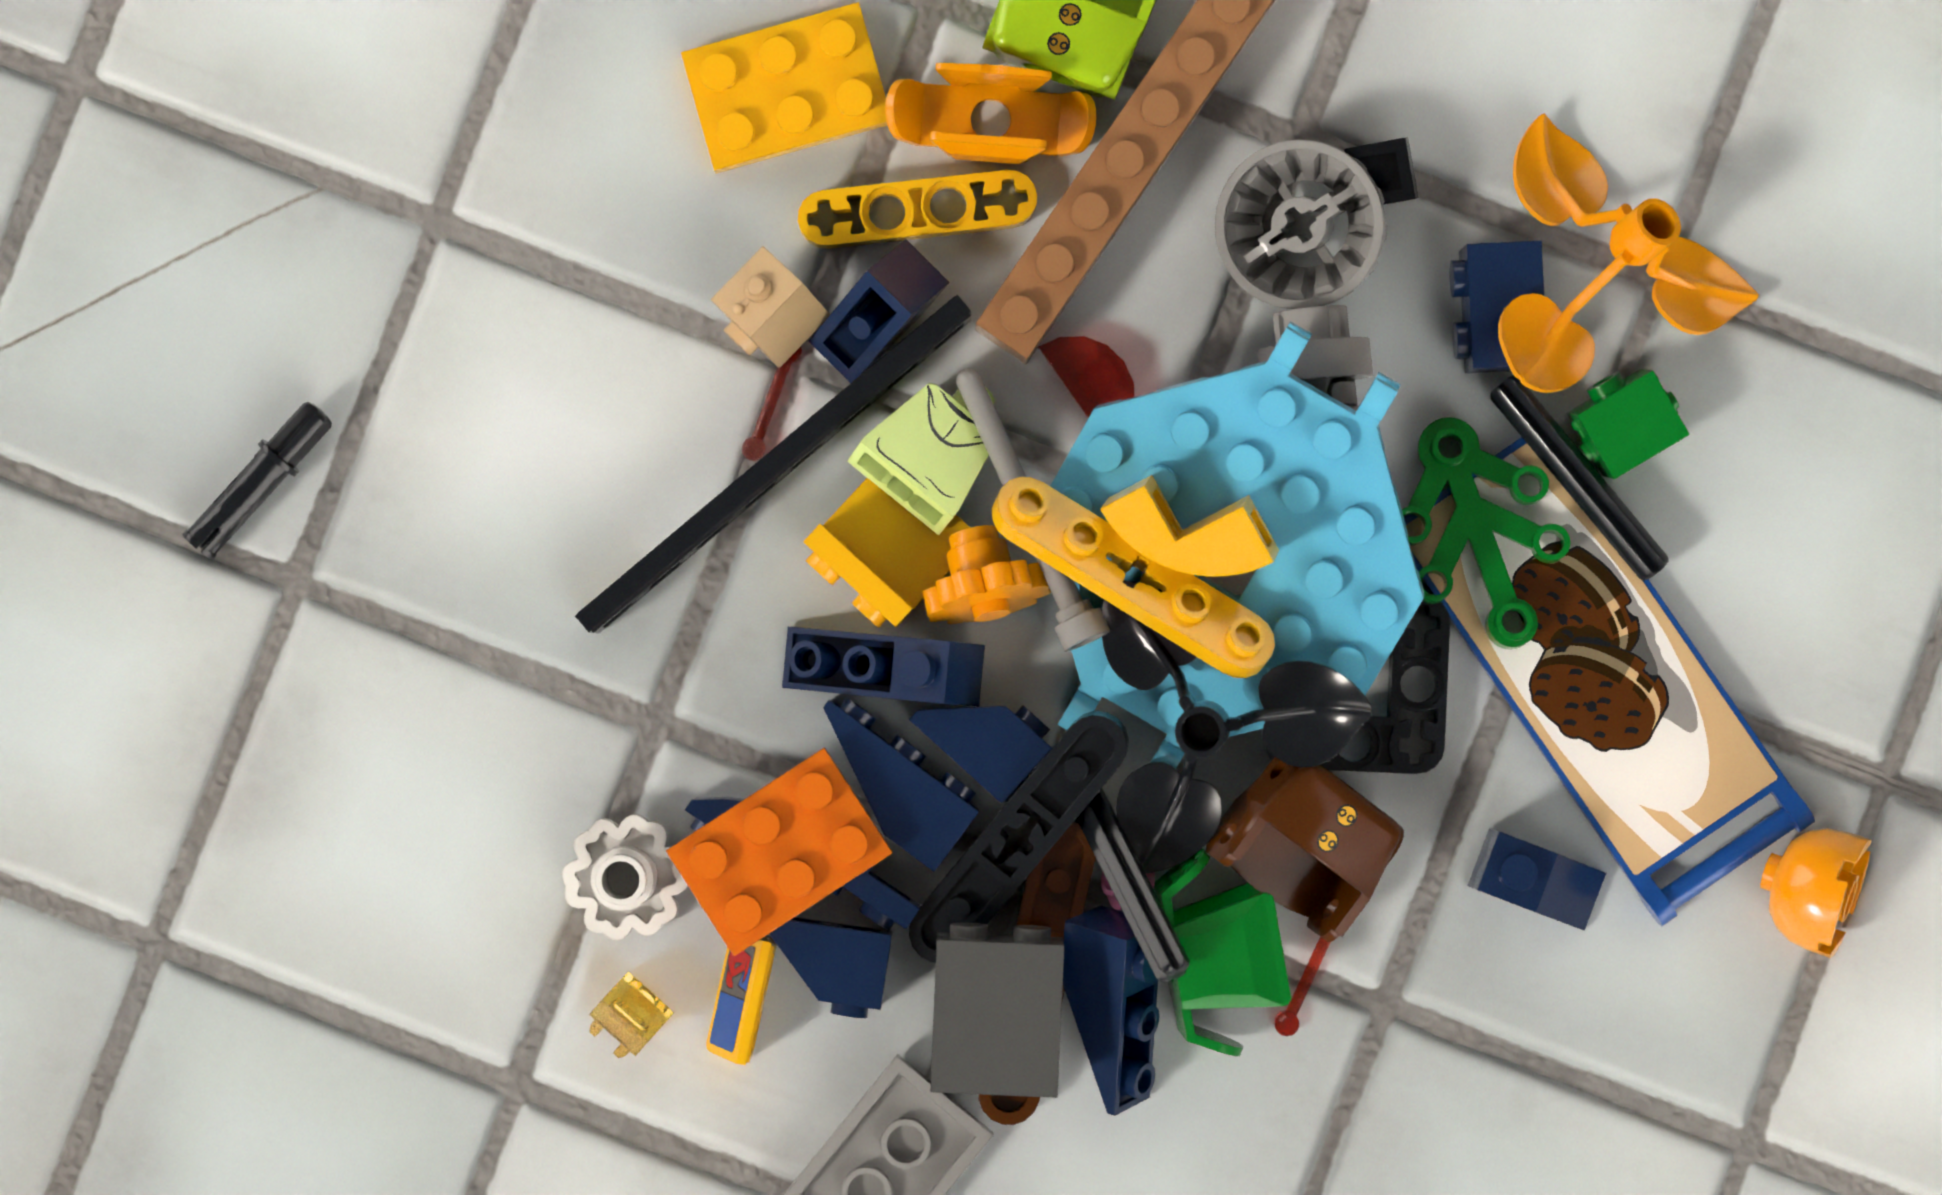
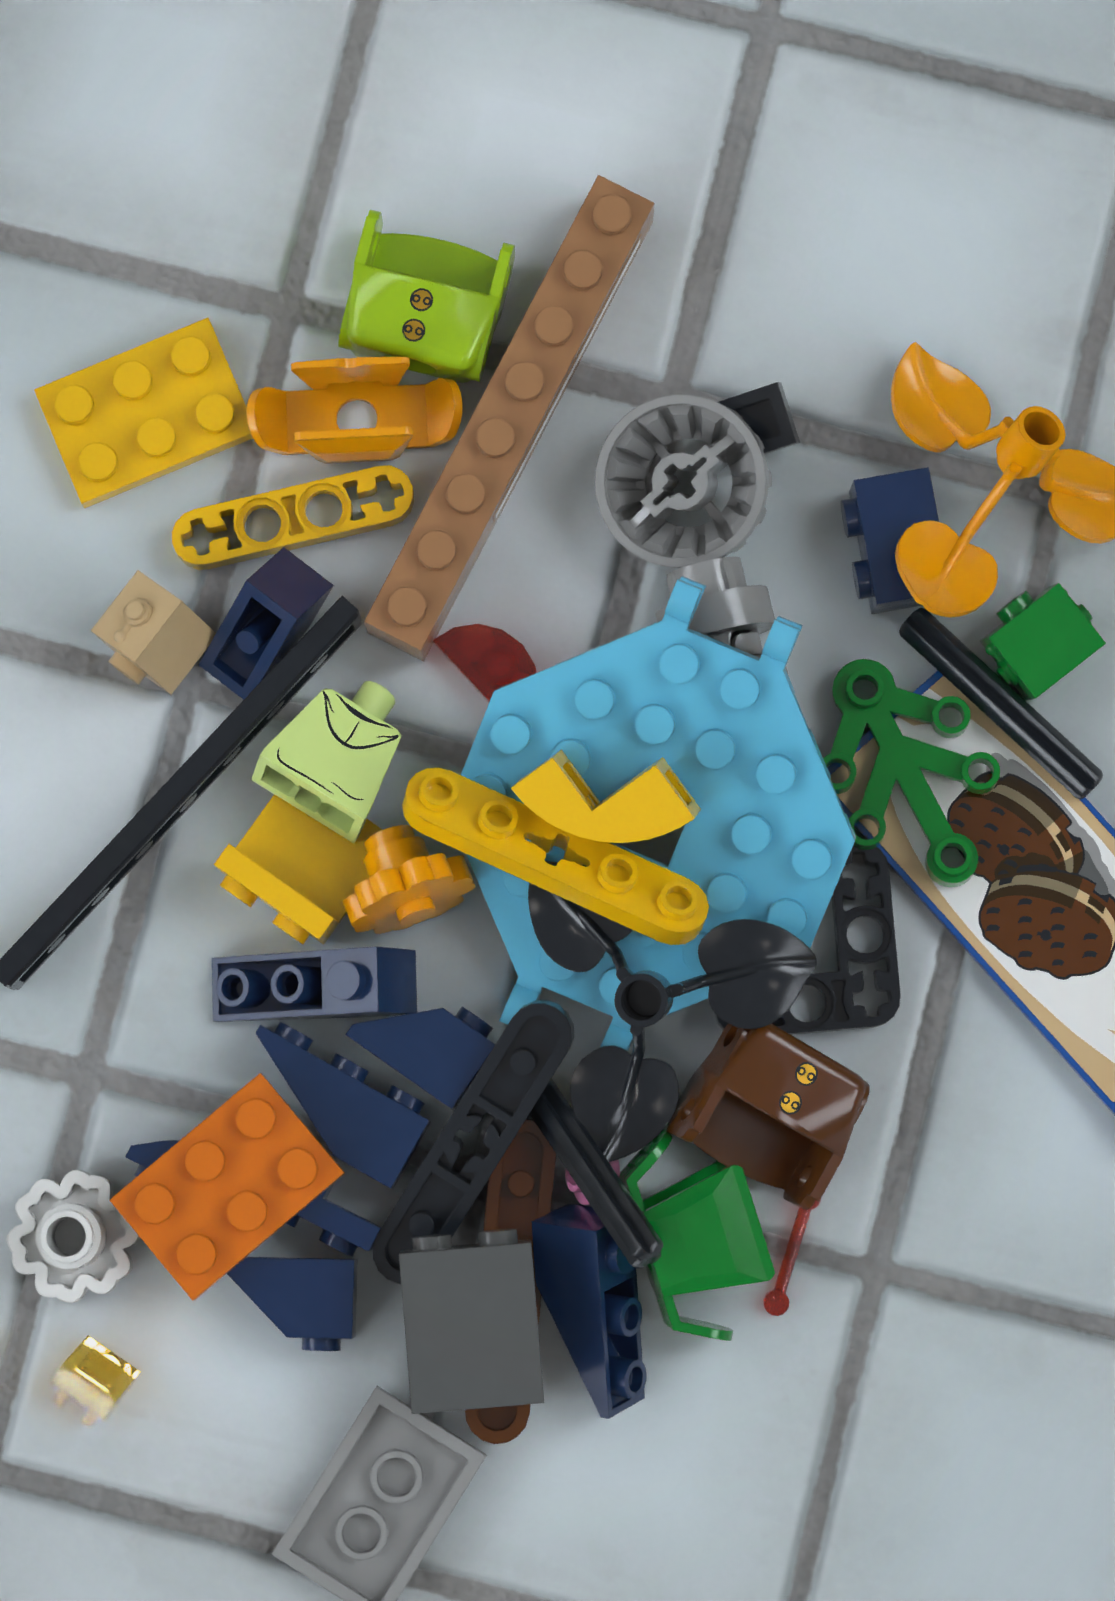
camera: 10 degrees left, 5 degrees down
(741, 1001) = (209, 1349): slope -> none
(754, 447) = (155, 777): clear red hinge -> none
(1077, 618) = (504, 907): light grey piece -> none
(1536, 879) = (1014, 1119): dark blue slope -> none

